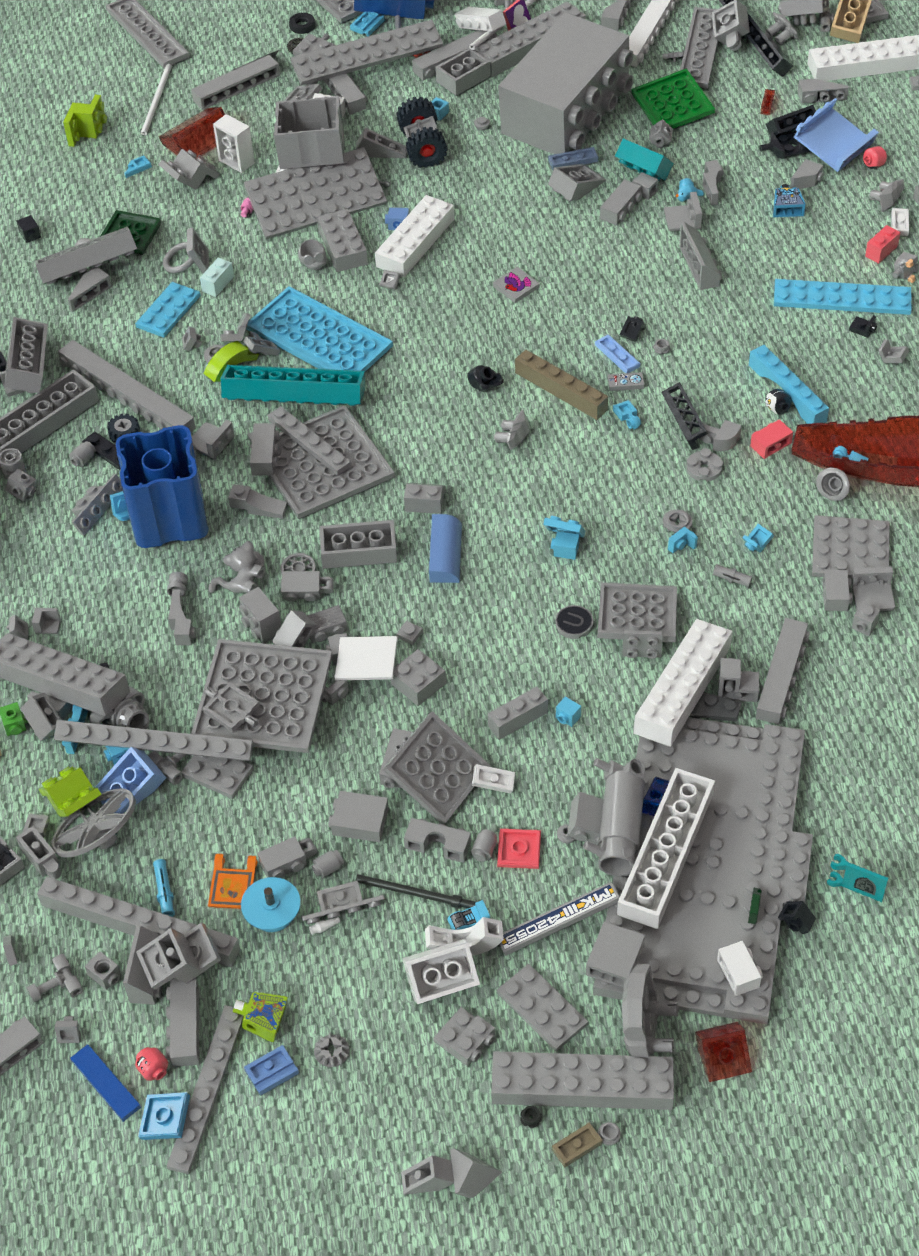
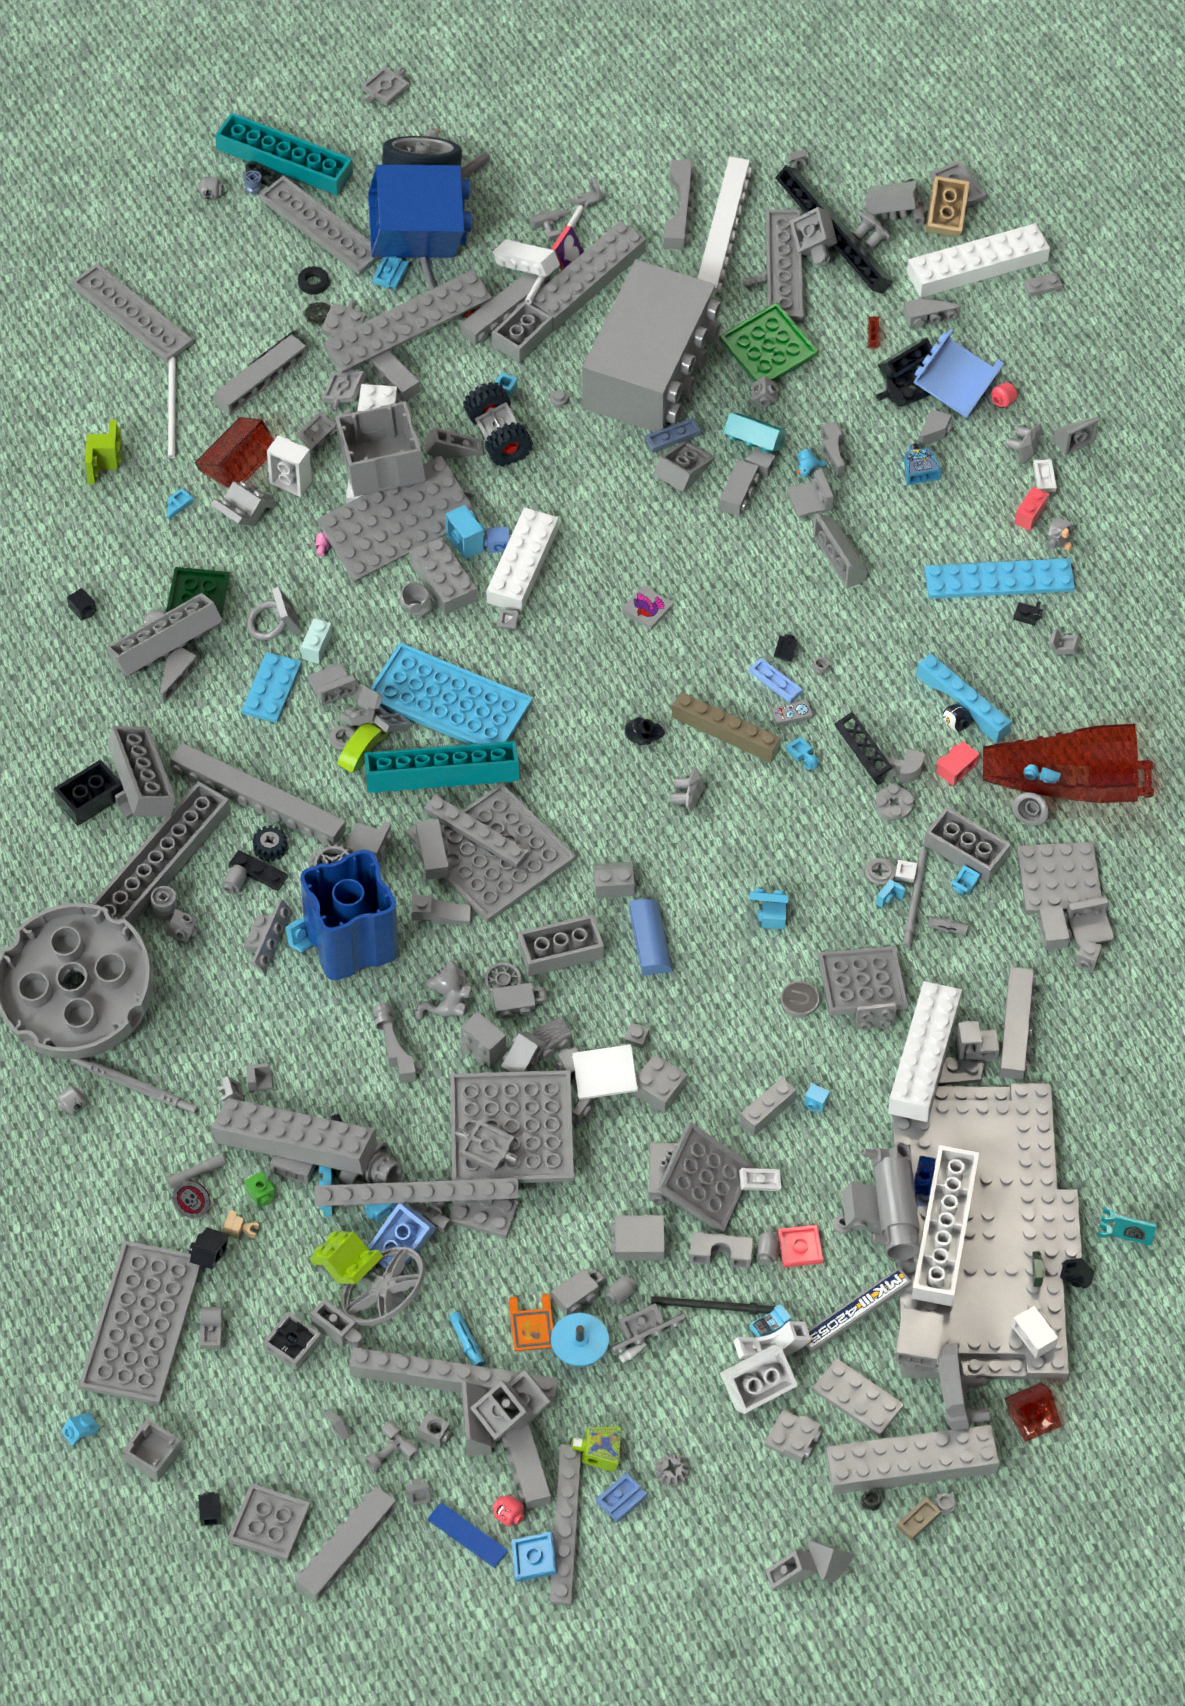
camera: 15 degrees left, 5 degrees up
(40, 822) = (318, 1293): light grey plate -> none
(41, 716) = (293, 1183): light grey brick -> none
(191, 339) = (309, 722): light grey tile -> none
(220, 312) = (332, 684): none -> light grey bracket
(263, 128) = (316, 429): none -> light grey bracket
(370, 208) = (465, 532): none -> medium azure brick
(695, 572) = (909, 927): none -> light grey bar
(702, 524) = (905, 871): none -> white plate
(765, 505) = (967, 844): none -> light grey brick

